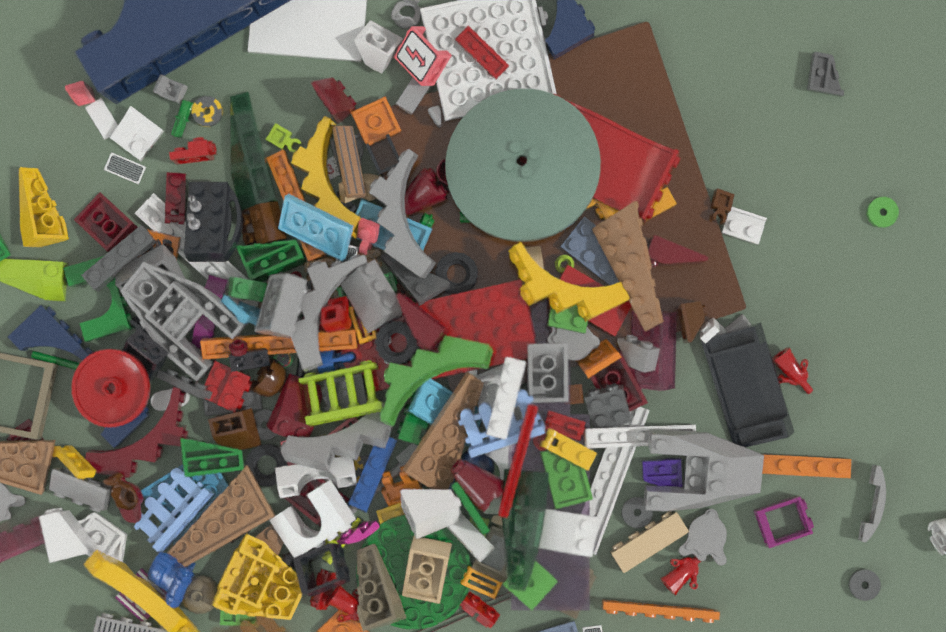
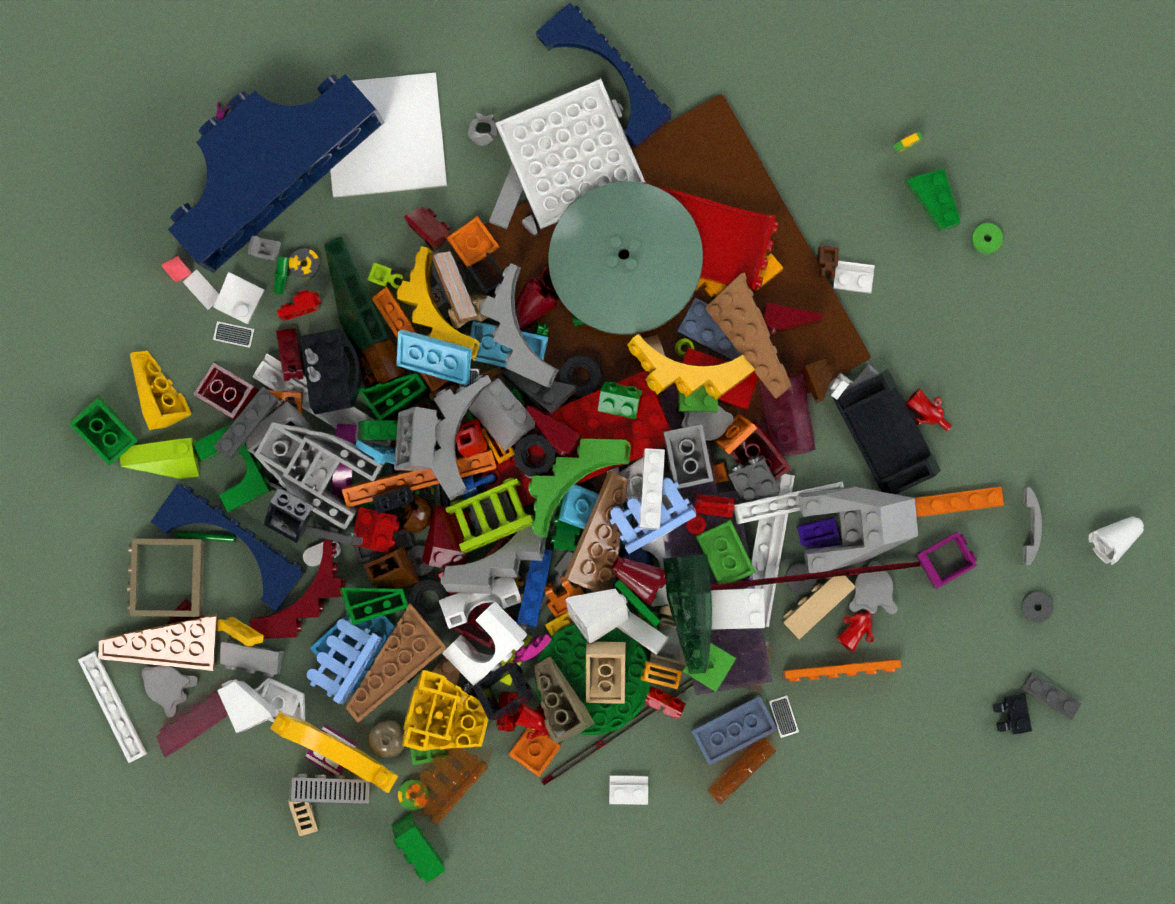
camera: 10 degrees left, 0 degrees up
(110, 388) = (262, 552): red dish -> none
(126, 496) = (298, 657): reddish brown hair -> none
(171, 576) = (357, 726): blue piece -> none
(238, 347) = (380, 489): dark red plate -> none
(368, 232) = (487, 353): coral plate -> none
(377, 46) = (460, 167): white slope -> none
(420, 57) = (506, 171): panel -> none
(481, 52) = (564, 155): red tile -> none
(490, 304) = (619, 400): none -> green bracket
(517, 461) = (675, 546): red axle -> none
(569, 449) = (723, 528): yellow plate -> none
(639, 354) = (773, 422): light grey slope -> none
(649, 513) = (818, 575): none -> dark red piece
(822, 102) = (908, 142): none -> piece
(823, 75) = (904, 115): dark grey wing -> none
(840, 163) = (936, 198): none -> green wedge

